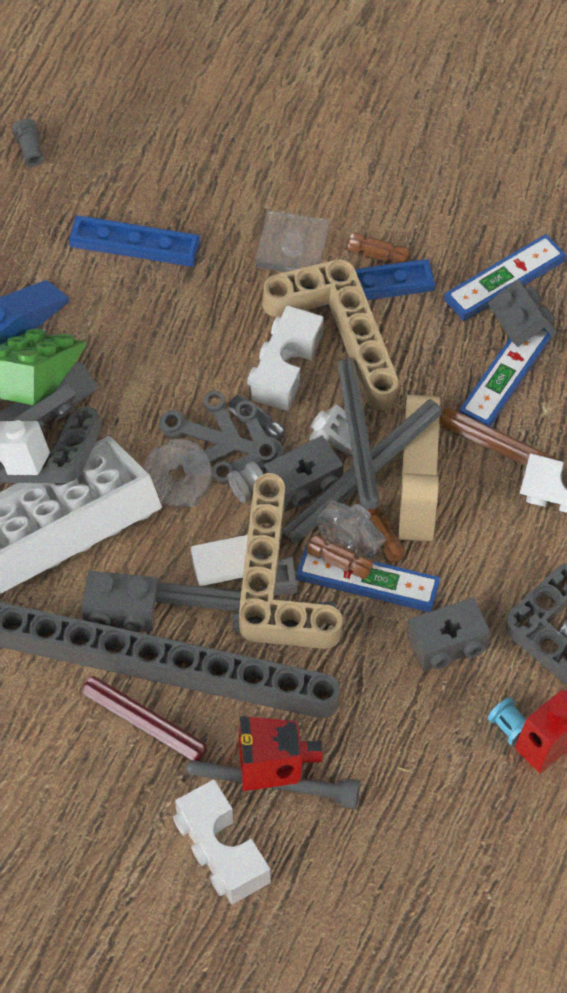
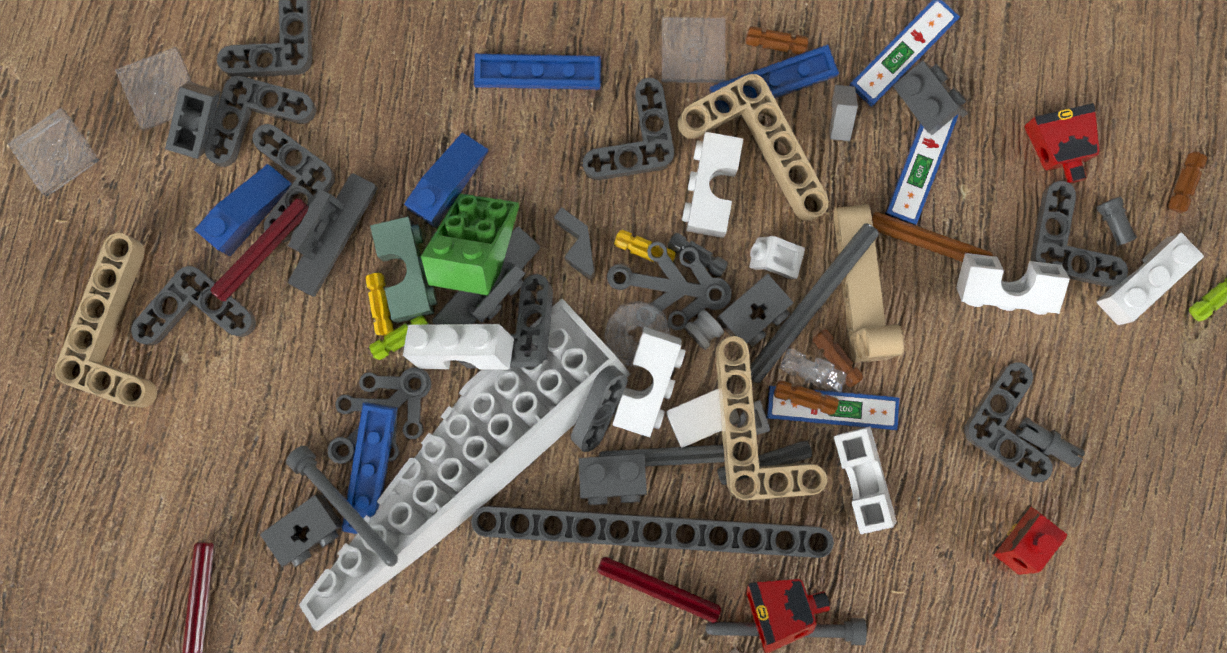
camera: 10 degrees left, 25 degrees up
(116, 514) = (599, 408): none -> dark grey beam
(135, 394) = (580, 253): none -> dark grey slope
(167, 540) = (641, 409): none -> white arch
(185, 395) = (639, 246): none -> yellow axle
(230, 316) = (650, 139): none -> dark grey beam
(358, 434) = (803, 269): dark grey axle -> none
(389, 657) = (867, 480): none -> white arch
(430, 315) = (844, 112): none -> light grey piece
(448, 634) = (900, 459): dark grey brick -> none
(508, 719) = (988, 535): medium azure bush -> none

